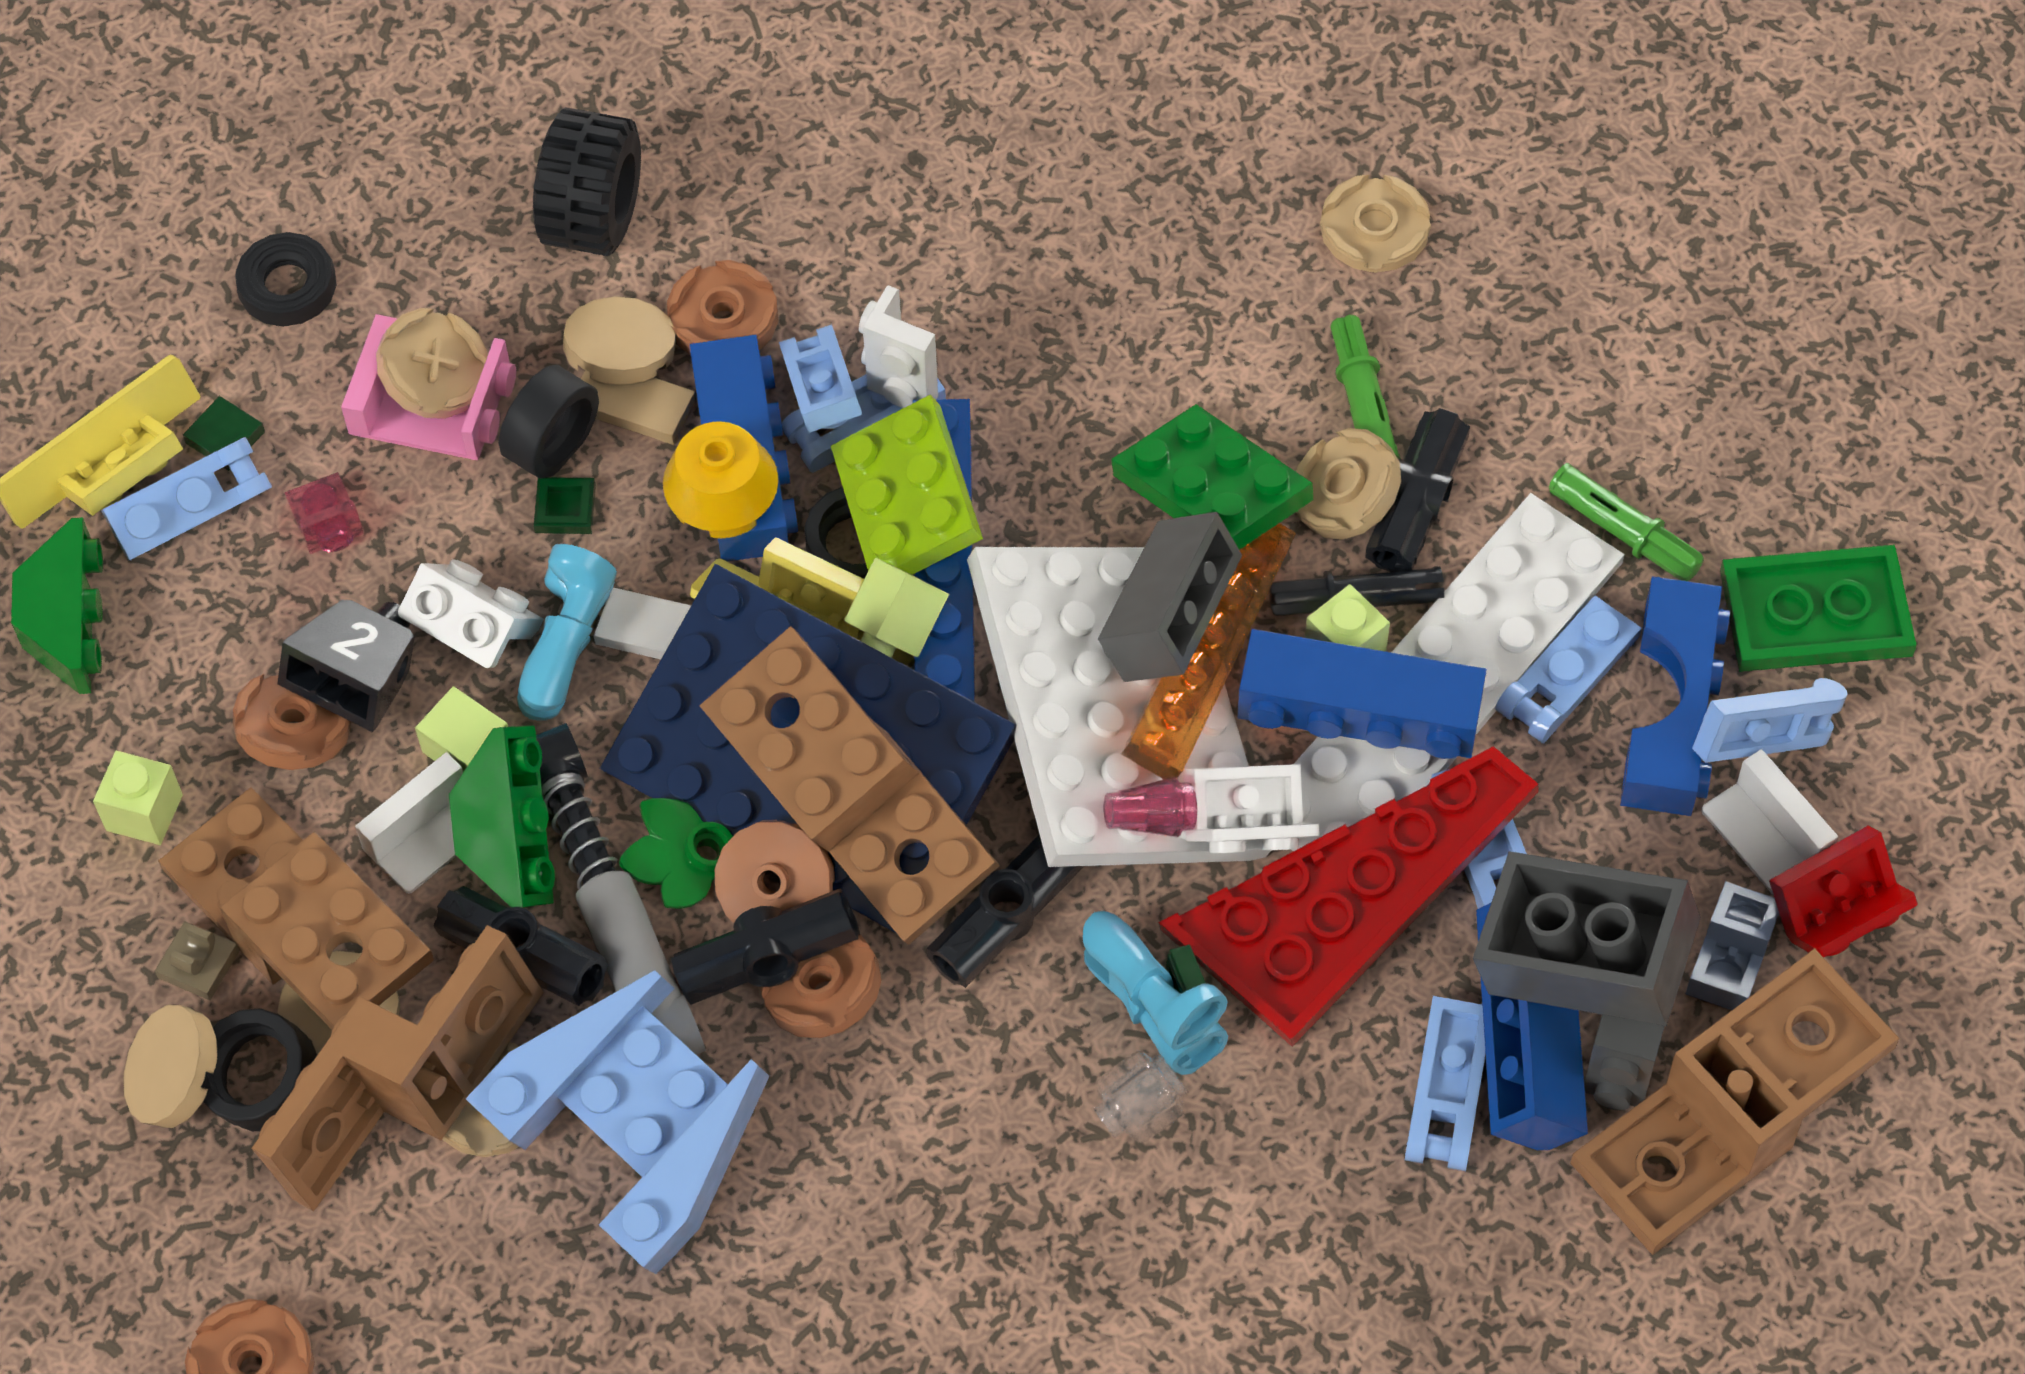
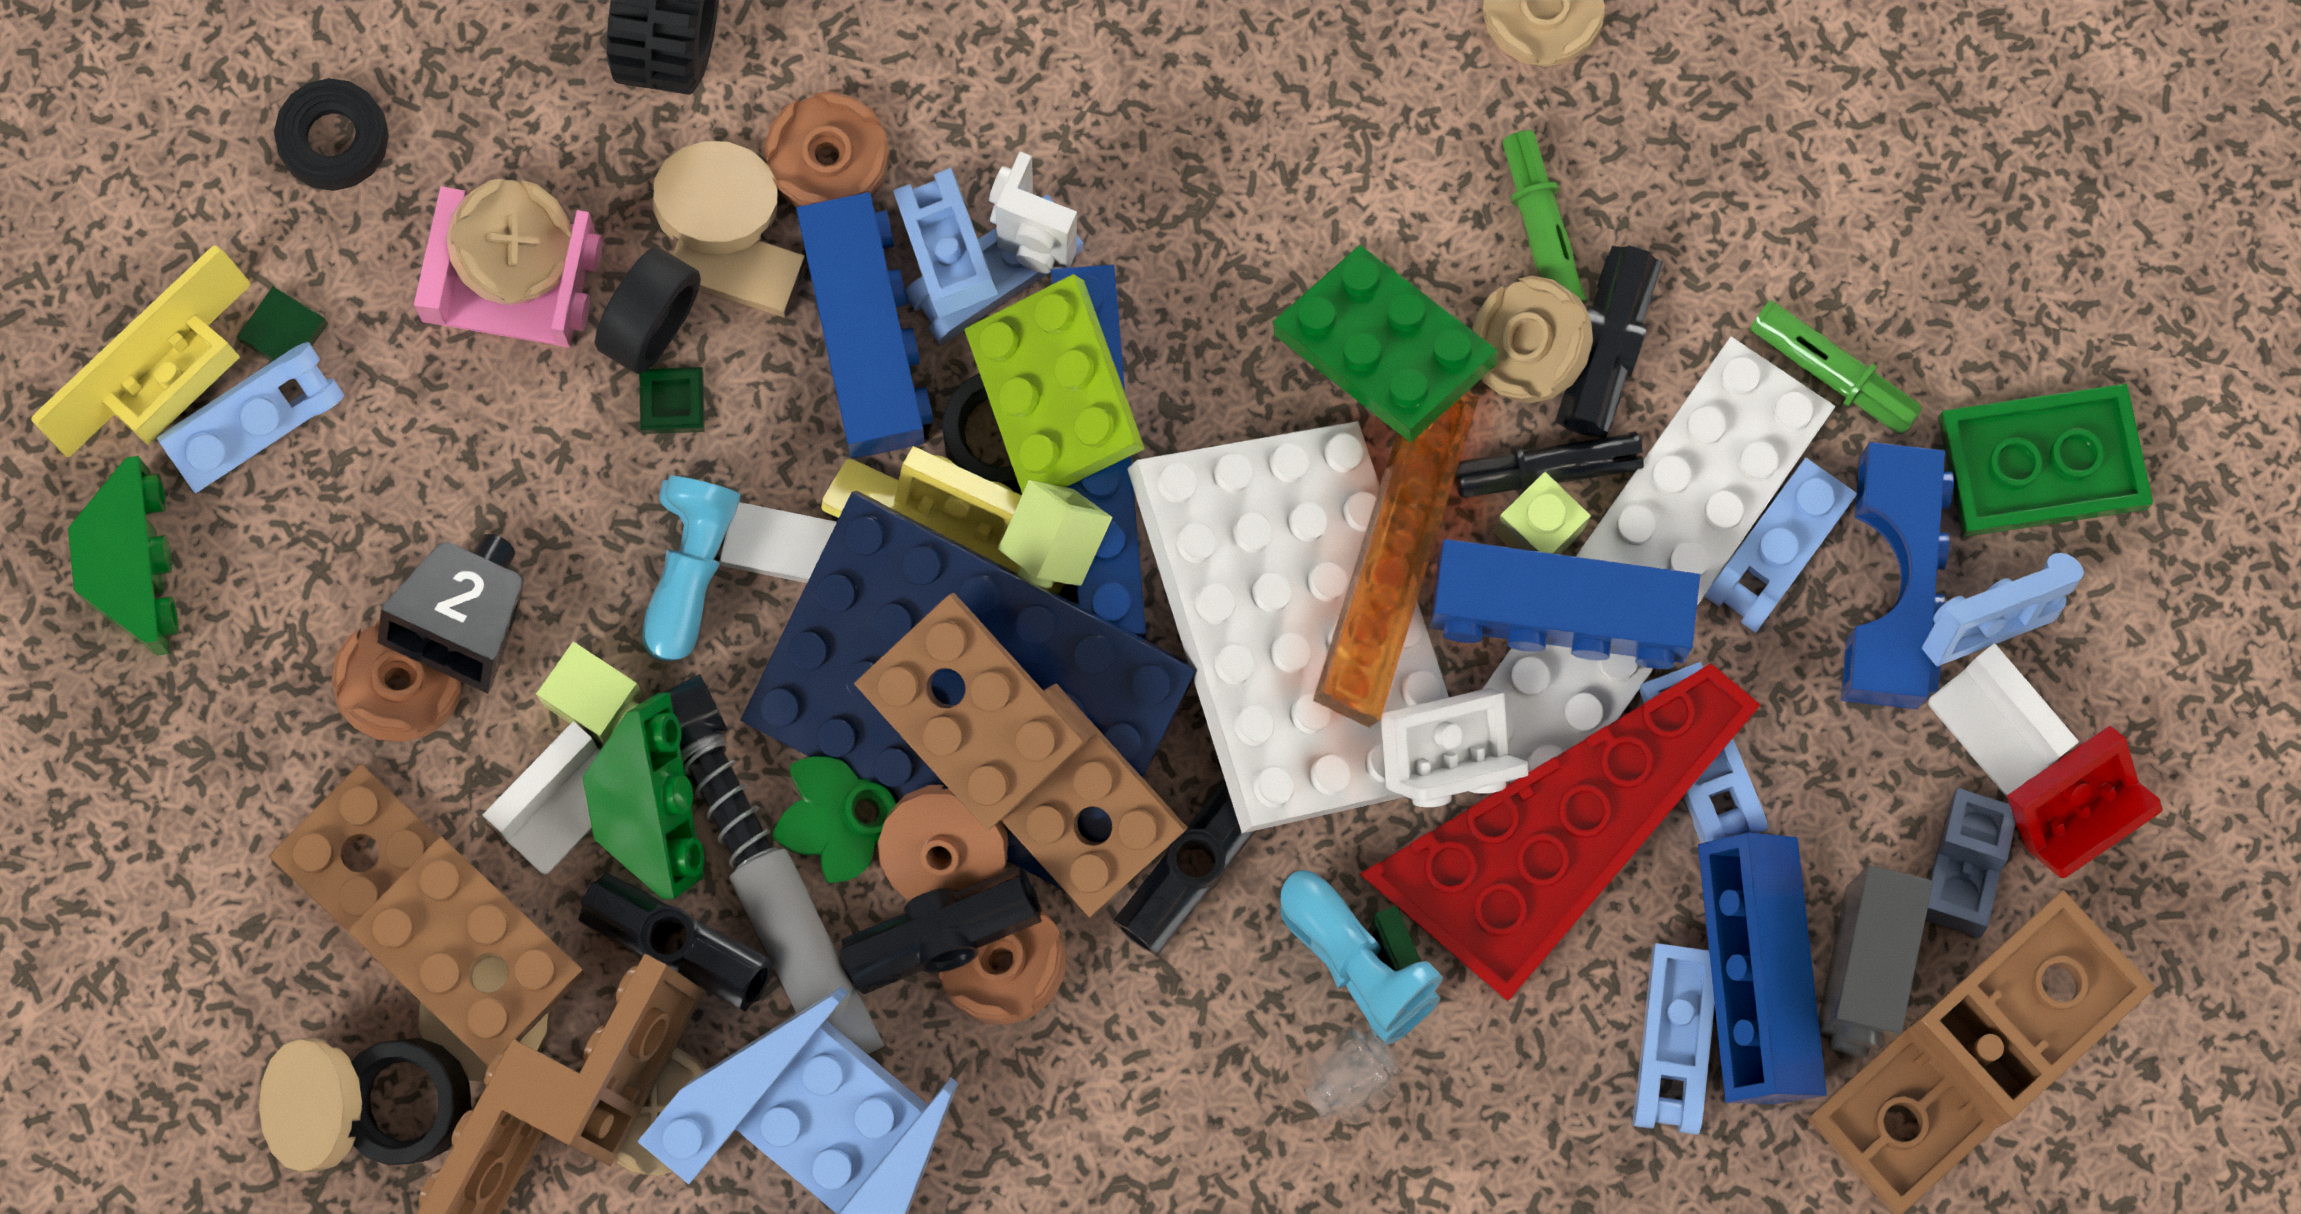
camera: 10 degrees left, 15 degrees up
(138, 797) = (238, 787): yellowish green brick -> none
(197, 960) = (323, 969): dark tan tile -> none
(325, 514) = (406, 426): clear pink bracket -> none
(467, 613) = (579, 542): white bracket -> none
(720, 480) = (847, 384): yellow cone -> none
(1153, 808) = (1352, 764): clear pink cone -> none
(1170, 597) = (1353, 507): dark grey brick -> none
(1587, 937) = (1829, 908): dark grey brick -> none

